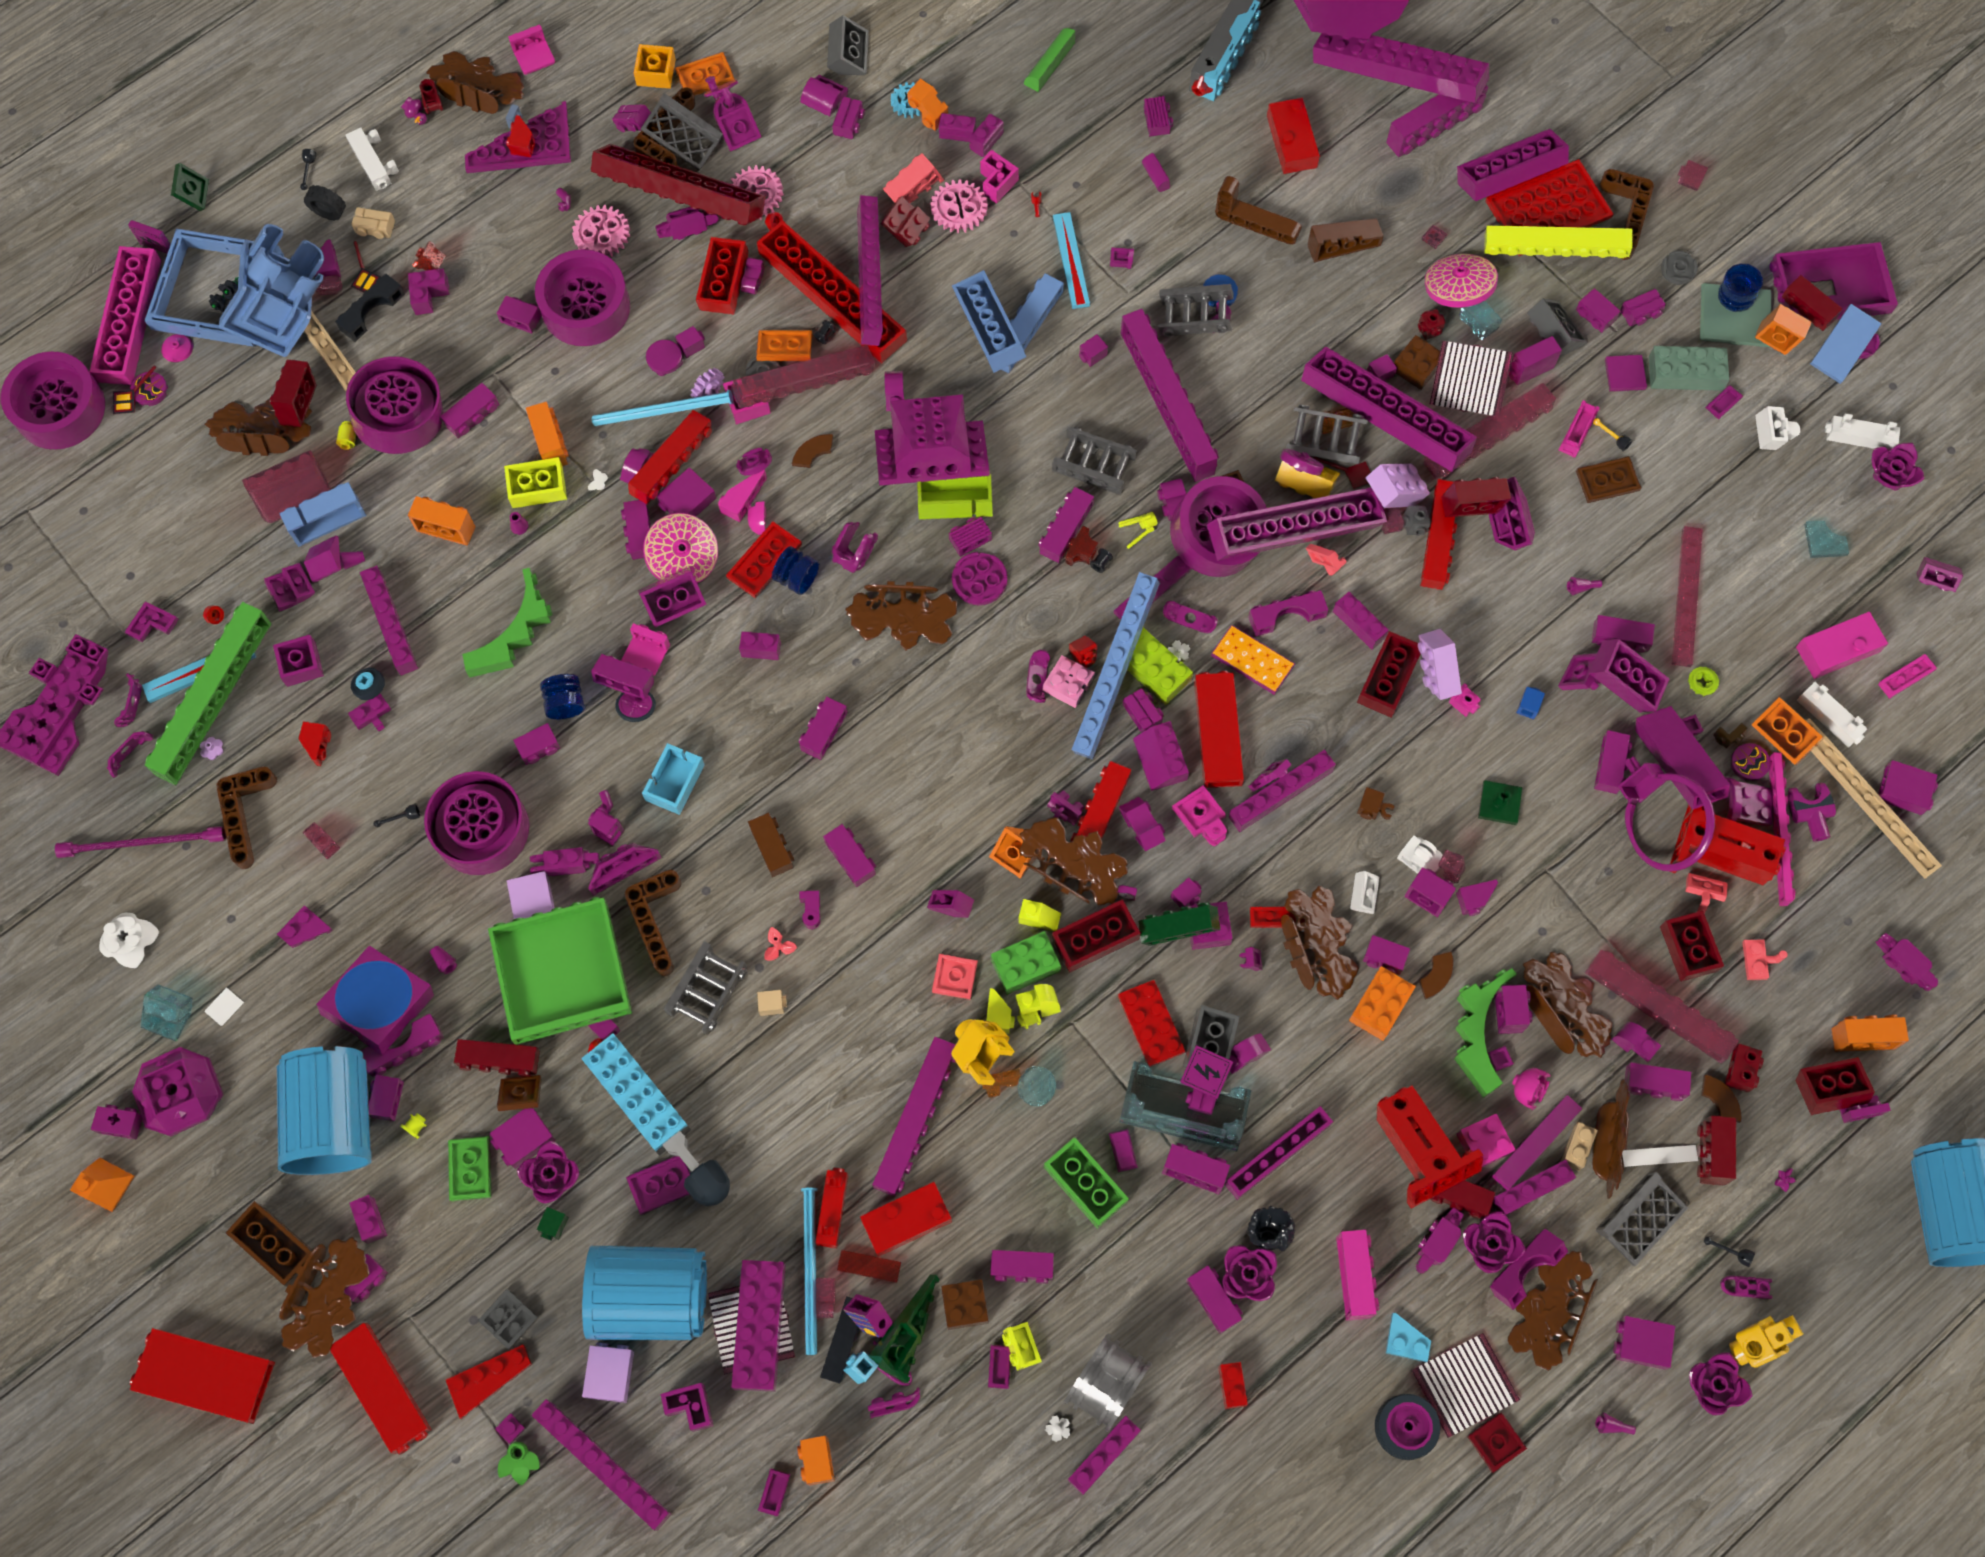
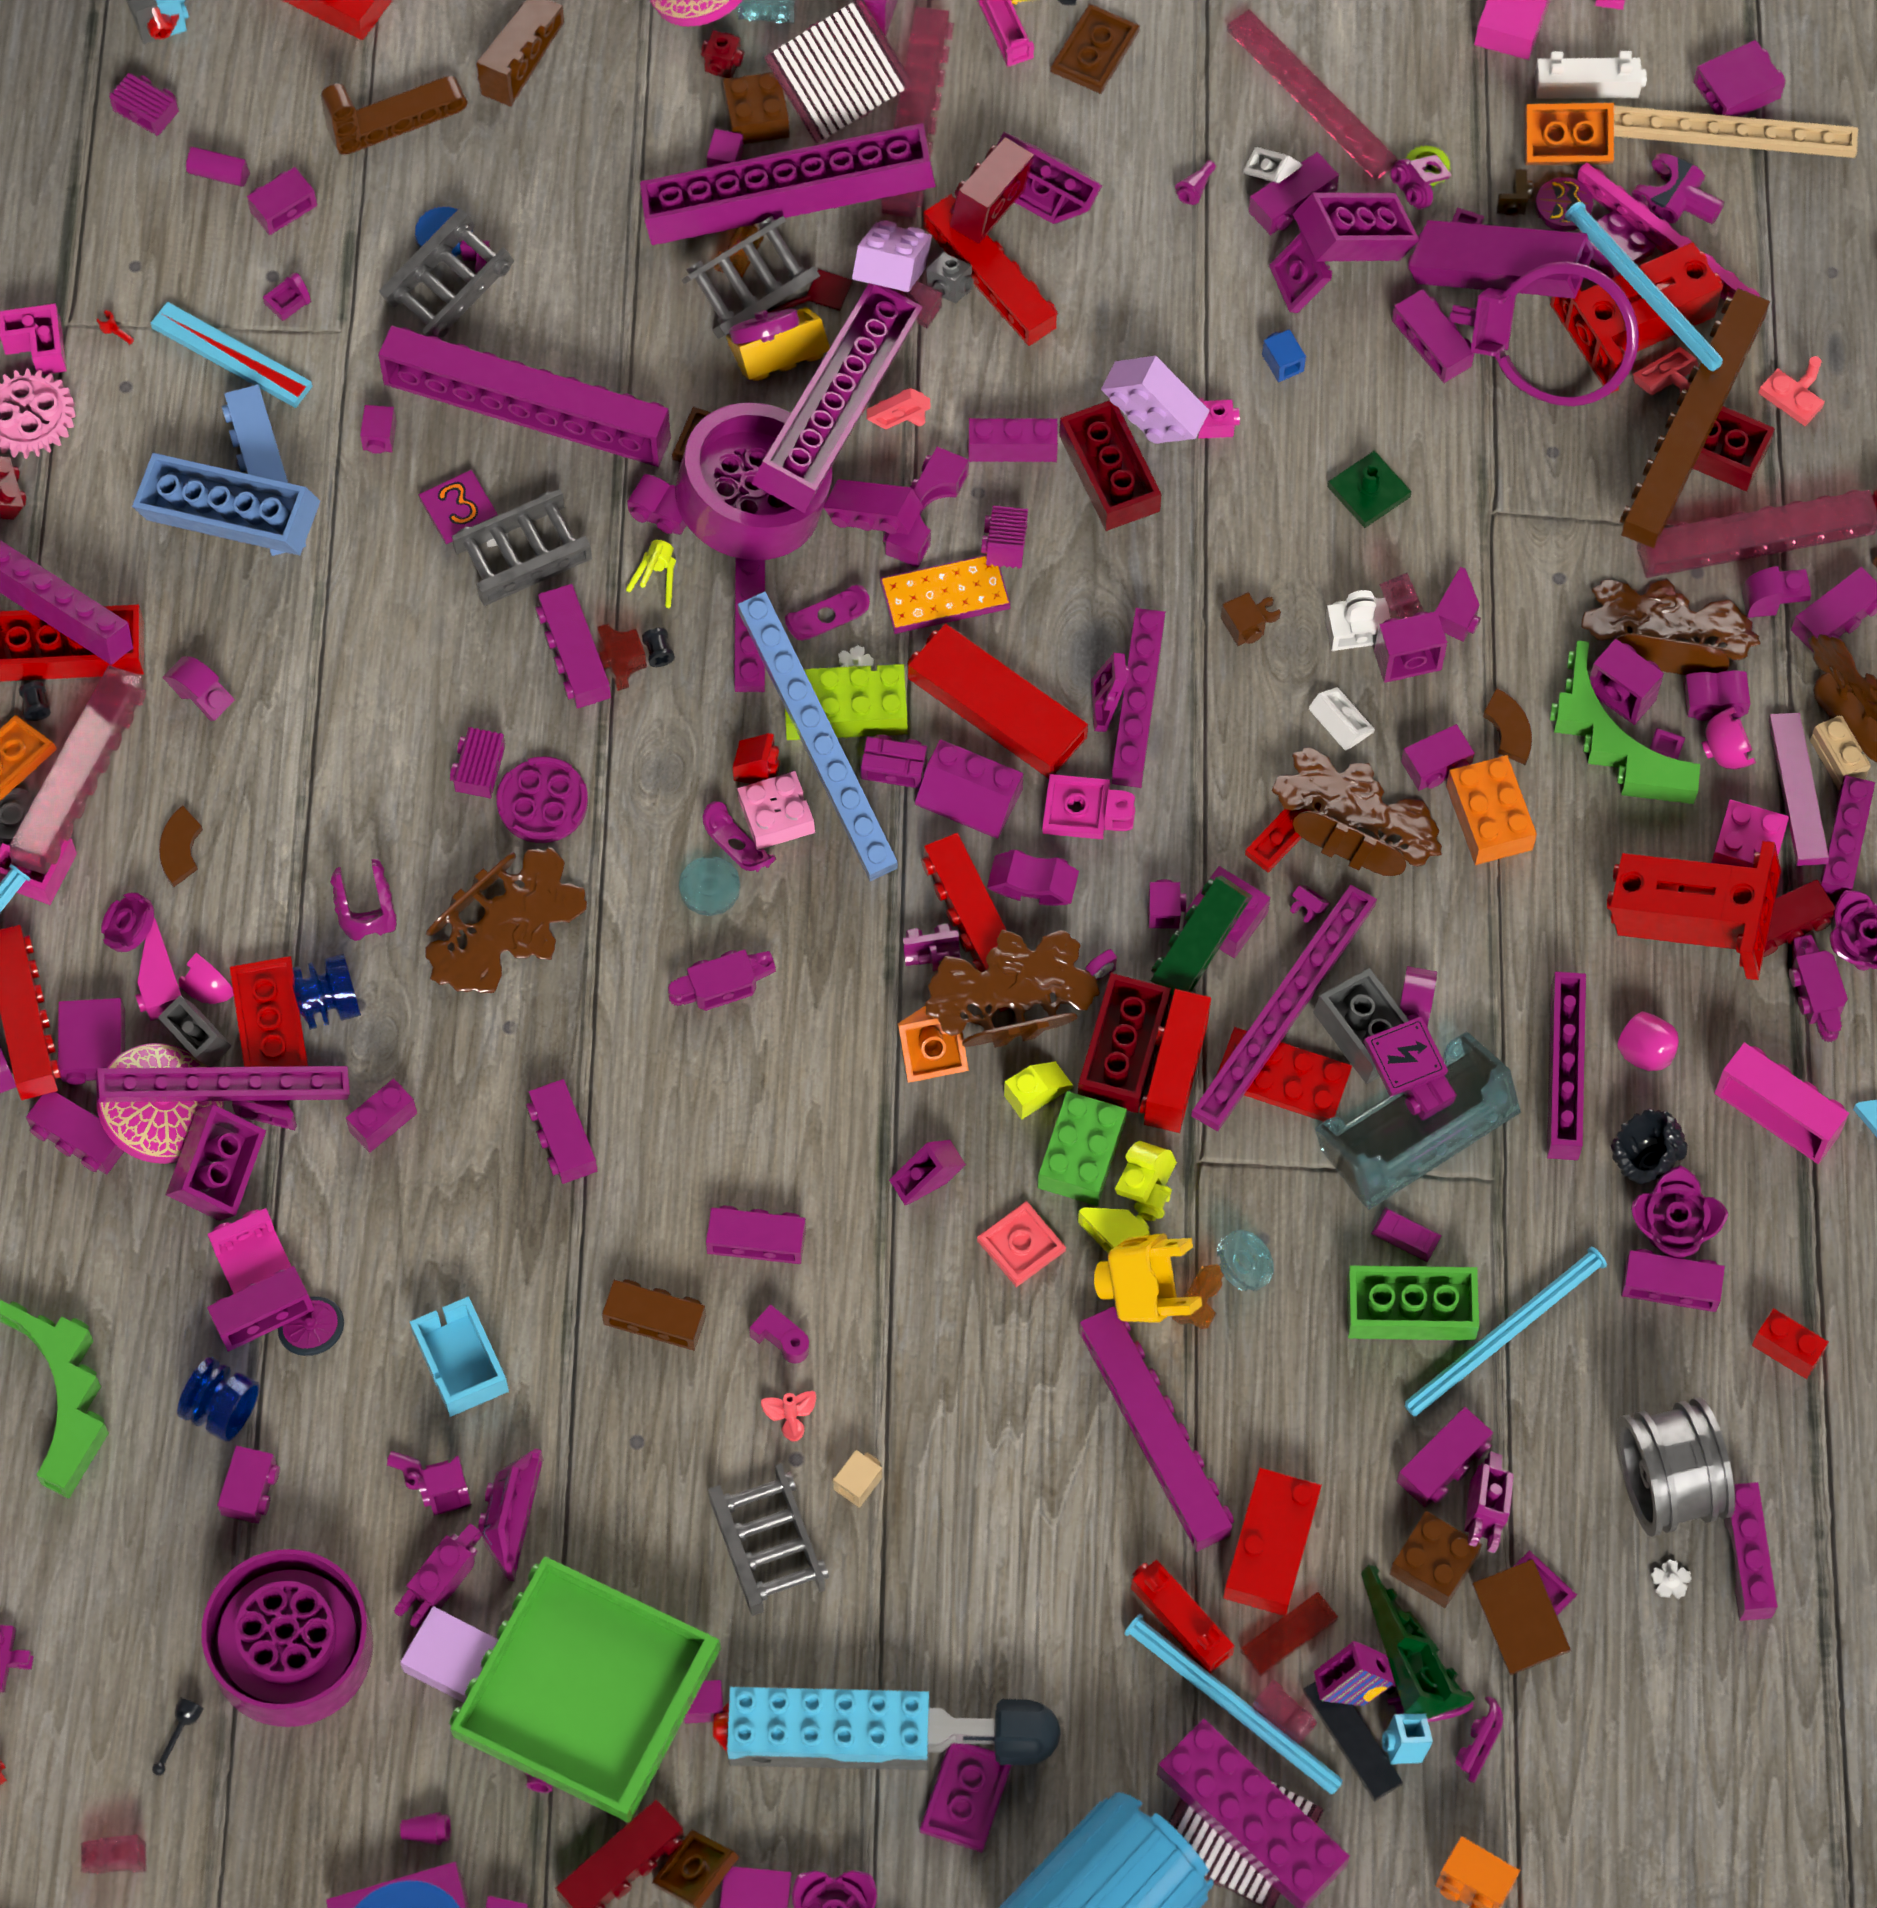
camera: 50 degrees left, 5 degrees down
(648, 920) = (616, 1534): reddish brown beam -> none
(709, 566) = (222, 1084): none -> magenta plate
(722, 595) = (270, 1112): none -> magenta slope
(727, 534) = (195, 1031): none -> flat silver brick
(930, 442) = (316, 703): magenta wedge -> none
(955, 498) = (414, 734): lime piece -> none
(962, 731) = (721, 979): none -> magenta hinge
(972, 1371) = (1521, 1617): none -> reddish brown tile
(1005, 686) = (709, 886): none -> clear light blue tile
(1014, 1306) = (1488, 1502): none -> magenta hinge
(1021, 1345) = (1541, 1537): neon yellow bracket -> none
(1089, 416) = (457, 505): none -> magenta tile
(1108, 967) = (1176, 1061): none -> red brick
(1114, 1240) = (1505, 1331): none -> medium azure axle
(1166, 212) = (282, 200): none -> magenta brick
(1183, 994) = (1283, 1008): none -> magenta plate
(1196, 1168) = (1505, 1167): magenta brick -> none
(1260, 589) = (873, 506): none -> magenta brick
(1306, 660) = (1006, 536): none -> magenta brick
(1329, 1182) = (1648, 1042): none -> dark pink piece
(1551, 1059) = (1714, 692): none -> magenta brick
(1625, 610) = (1271, 165): none -> white slope
(1687, 683) = (1415, 181): none -> magenta bracket
(1688, 922) = (1694, 420): none -> reddish brown brick
(1733, 836) = (1644, 286): none -> medium azure axle

